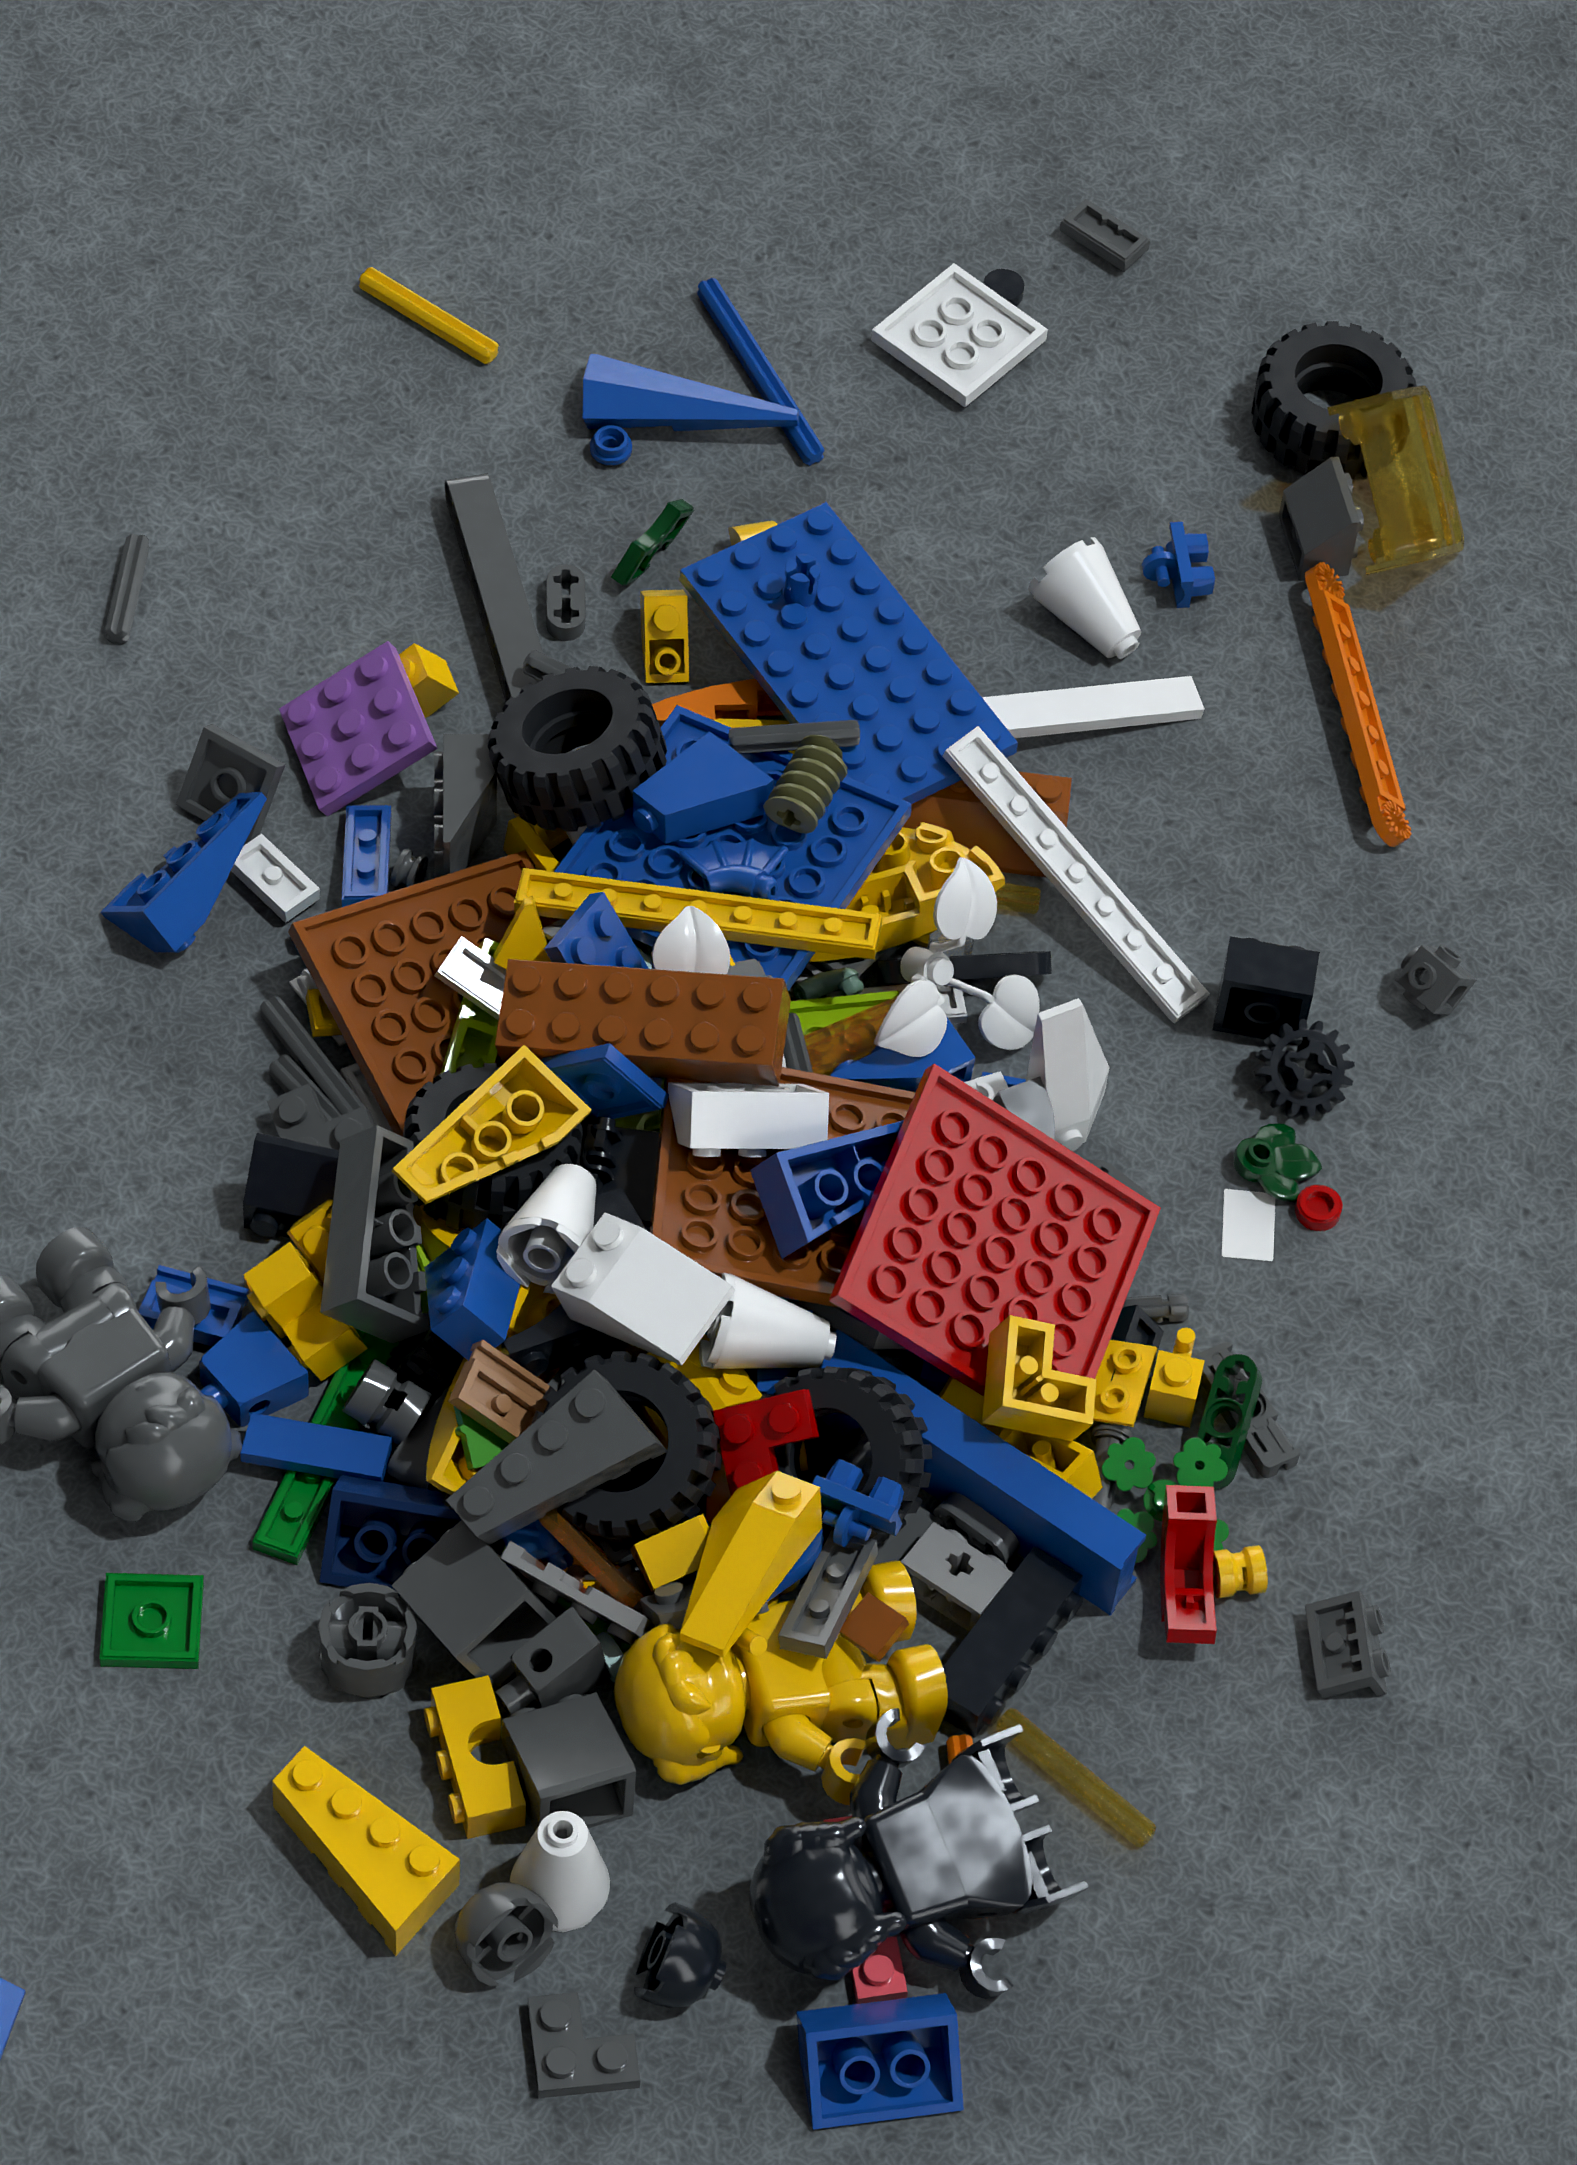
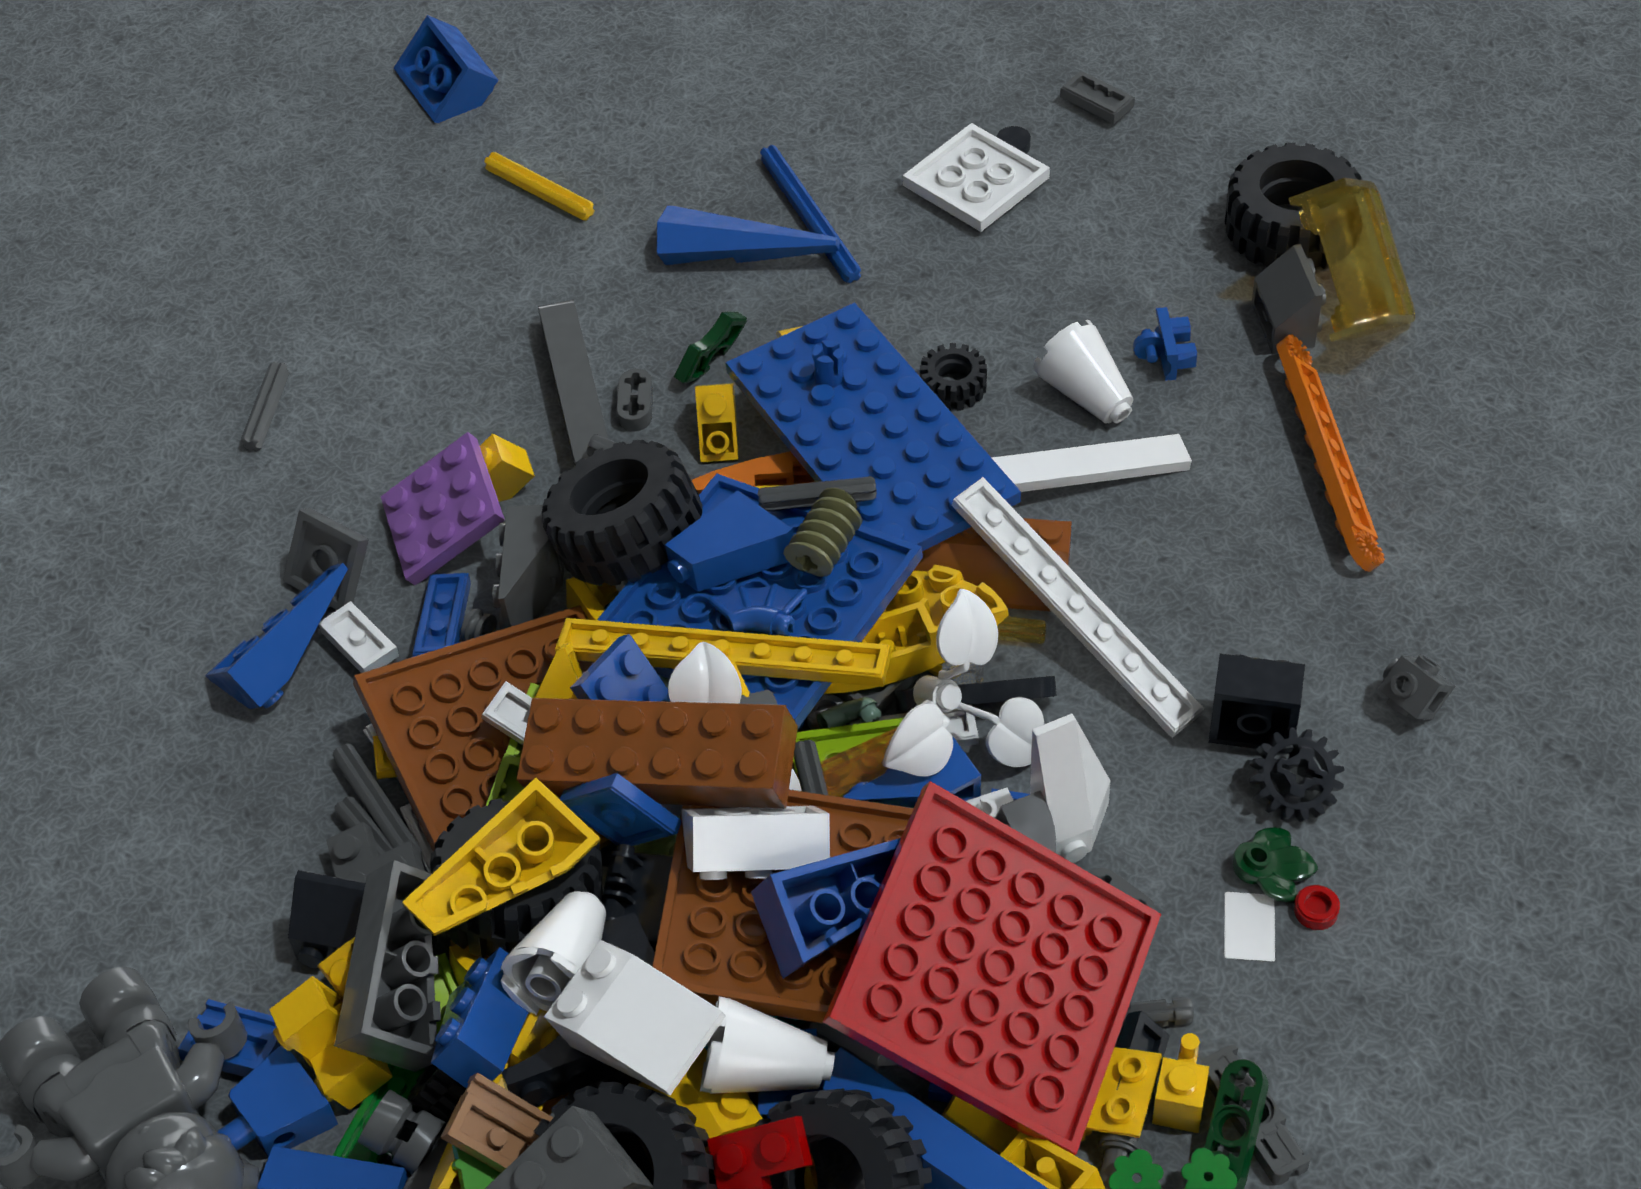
camera: 10 degrees right, 5 degrees down
(297, 150) = (444, 71): none -> blue slope
(611, 437) = (681, 275): blue plate -> none
(942, 575) = (959, 362): none -> black tyre
(1025, 1391) = (1023, 1108): yellow brick -> none

